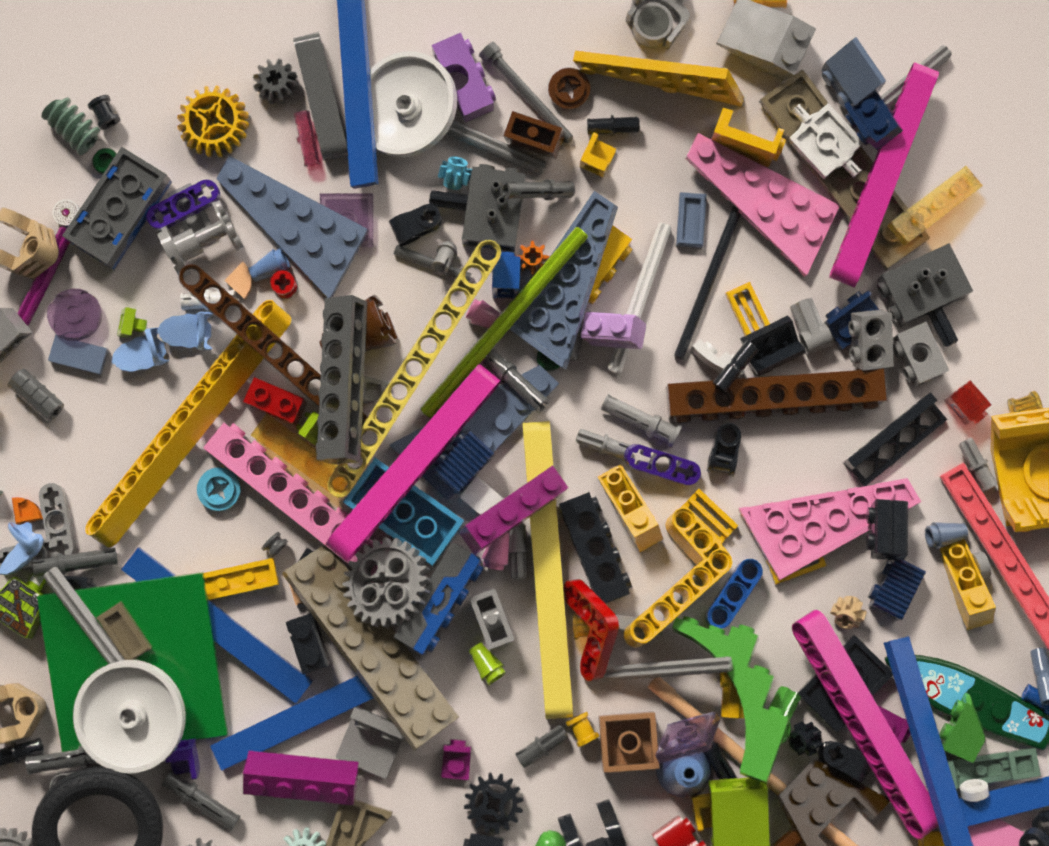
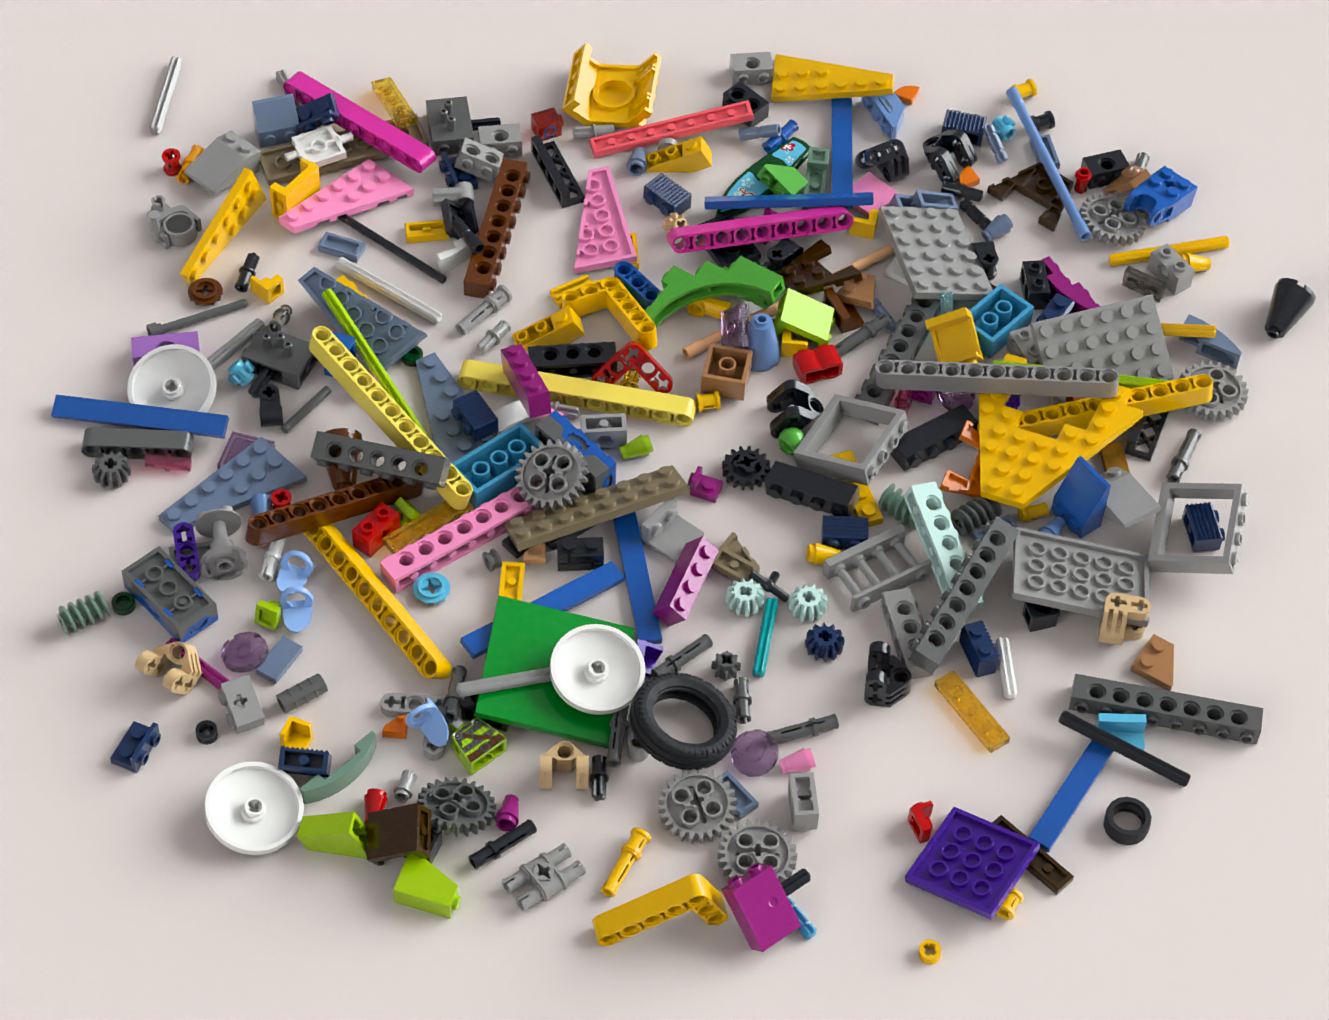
camera: 75 degrees left, 30 degrees down
(64, 212) = (154, 638): white tile -> none
(104, 112) = (80, 590): black bush -> none
(124, 632) = (526, 659): dark tan tile -> none
(219, 102) = (125, 513): yellow gear -> none
(412, 463) = (464, 437): dark pink beam -> none
(445, 254) = (302, 395): light grey pin -> none
(508, 373) = (424, 371): dark grey pin -> none
(534, 135) = (234, 314): reddish brown brick -> none
(541, 746) = (712, 430): dark grey axle -> none
(613, 330) = (410, 300): lavender brick -> none
(668, 669) = (680, 328): light grey axle -> none
(678, 477) = (508, 315): dark purple beam -> none
(724, 451) = (525, 266): black piece -> none
(888, 529) = (623, 180): black brick -> none
(974, 790) = (828, 185): white tile -> none
(1026, 403) = (559, 93): clear yellow bush -> none

